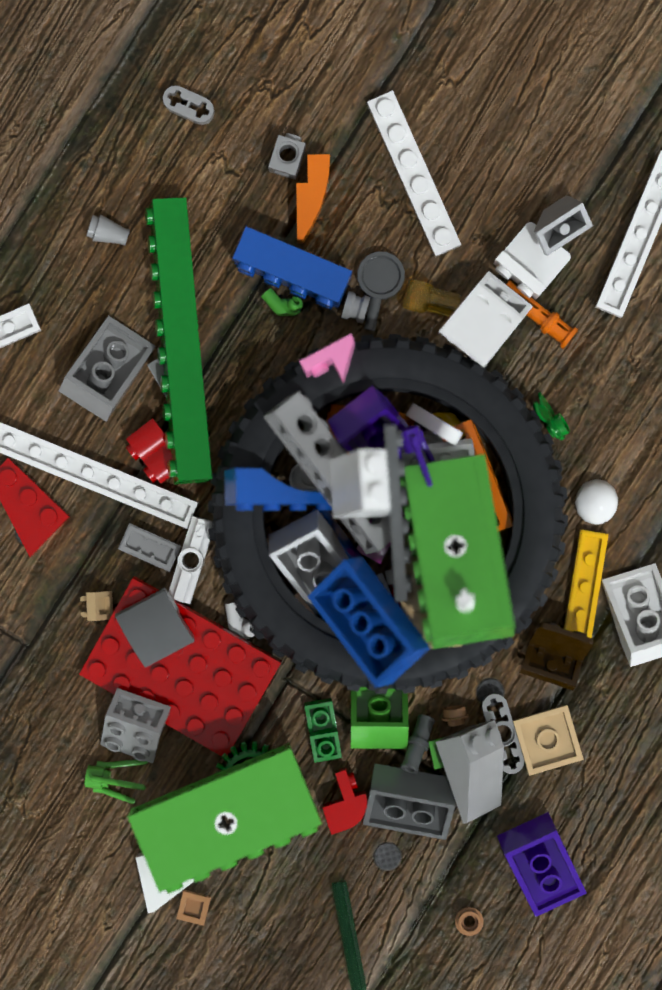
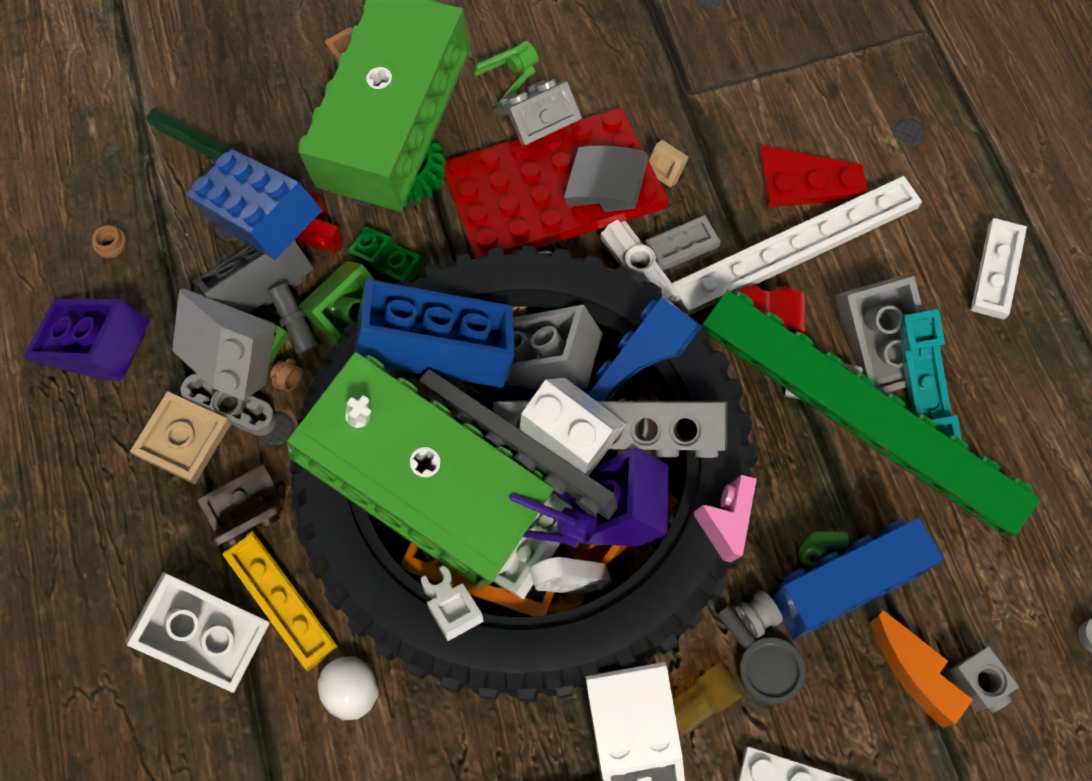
camera: 135 degrees right, 20 degrees down
(107, 231) = (1033, 438): light grey cone -> none
(120, 320) = (925, 371): none -> teal slope
(370, 838) = (254, 203): none -> blue brick
(512, 467) = (450, 606): none -> white plate
(556, 423) = (461, 712): green plate -> none

